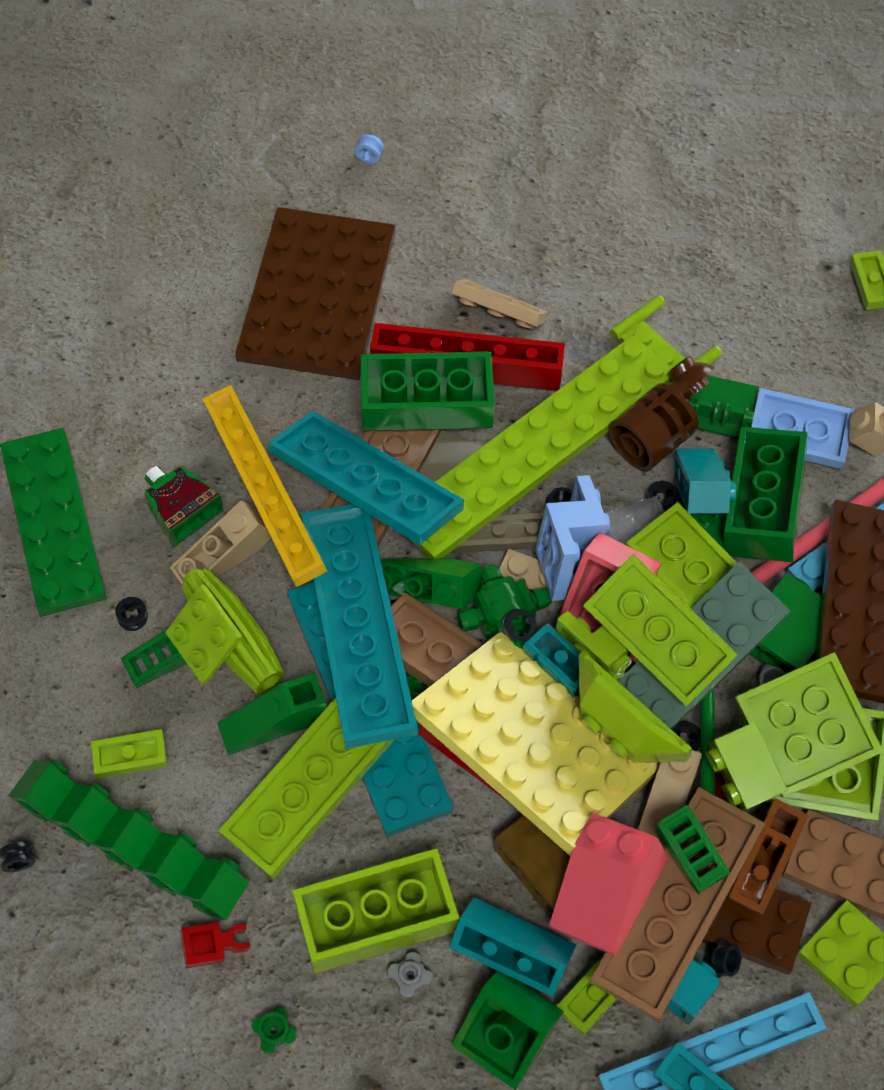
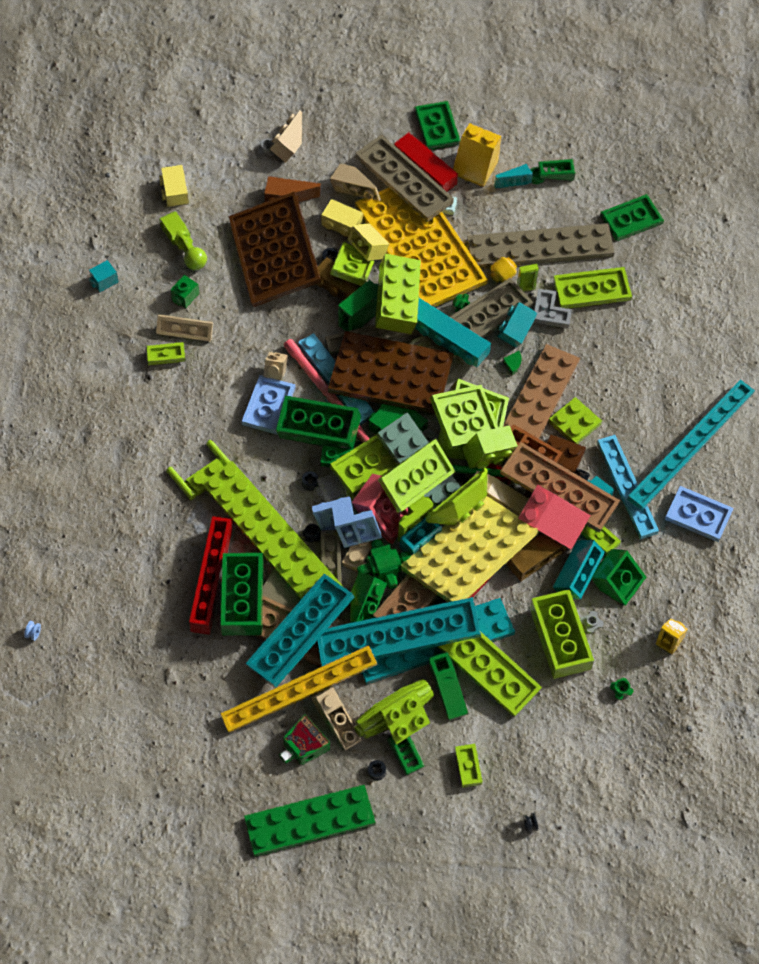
camera: 90 degrees left, 0 degrees up
(130, 838) = (520, 761): green brick -> none
(206, 945) = (577, 721): red plate -> none
(316, 293) = (146, 666): reddish brown plate -> none
(499, 304) = (167, 557): tan plate -> none
(527, 618) = (398, 555): black bush -> none
(660, 417) = (263, 470): reddish brown cylinder -> none
(703, 481) = (311, 453): teal brick -> none
(703, 842) = (529, 485): green slope -> none
(725, 406) = (249, 443): green hinge -> none

